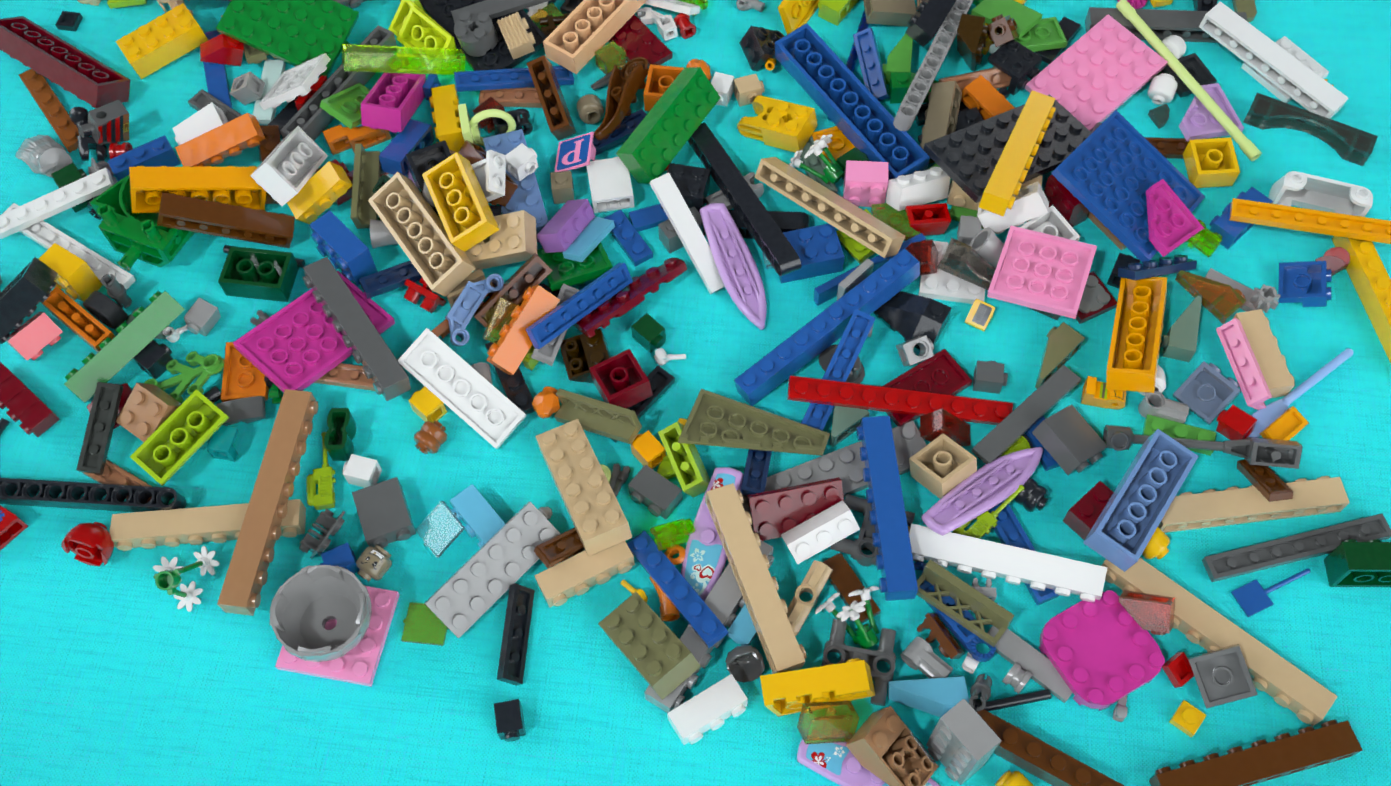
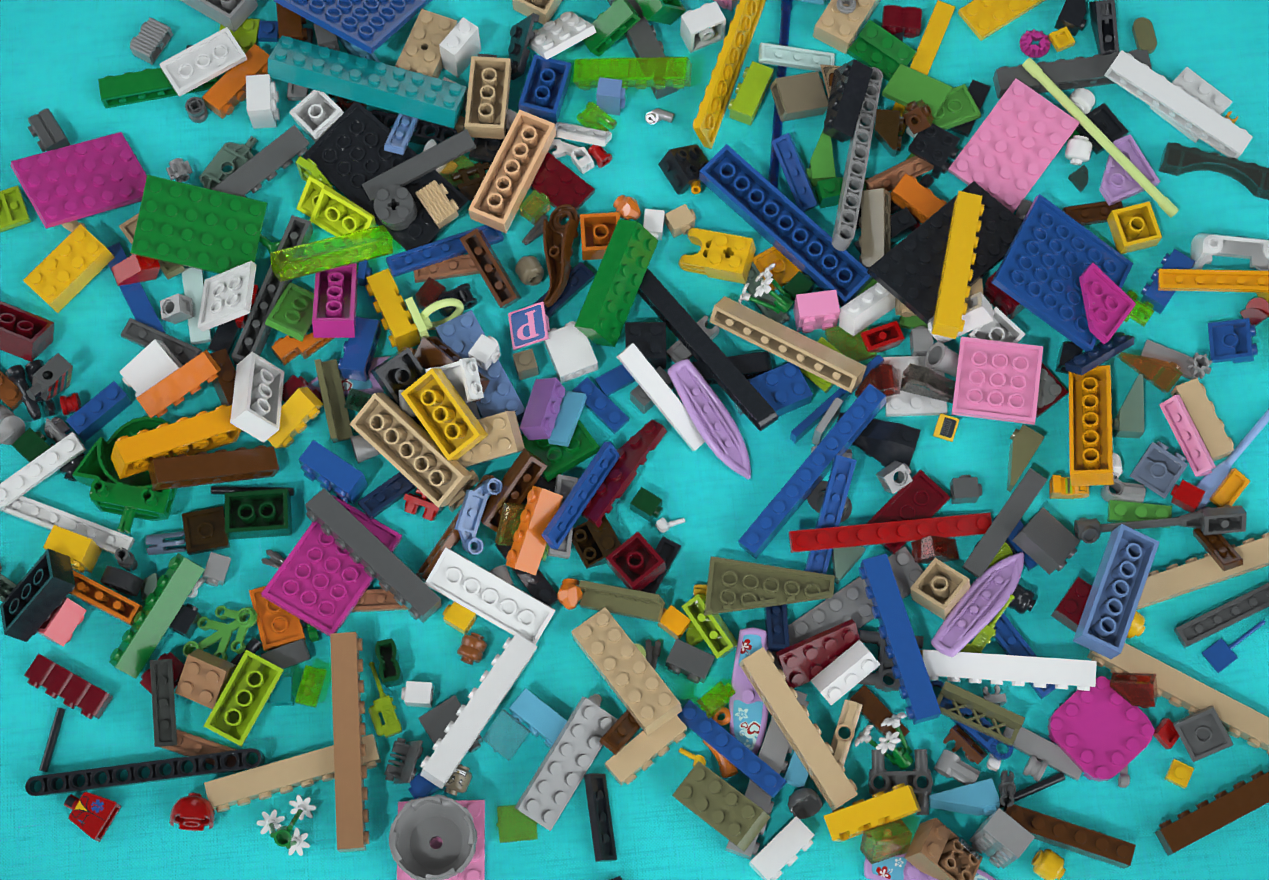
camera: 15 degrees left, 10 degrees up
(159, 283) = (159, 543): none -> sand blue arm
(202, 282) = (205, 530): none -> dark brown plate
(253, 443) = (310, 686): none -> clear neon green hips
(412, 496) = (478, 711): none -> white brick

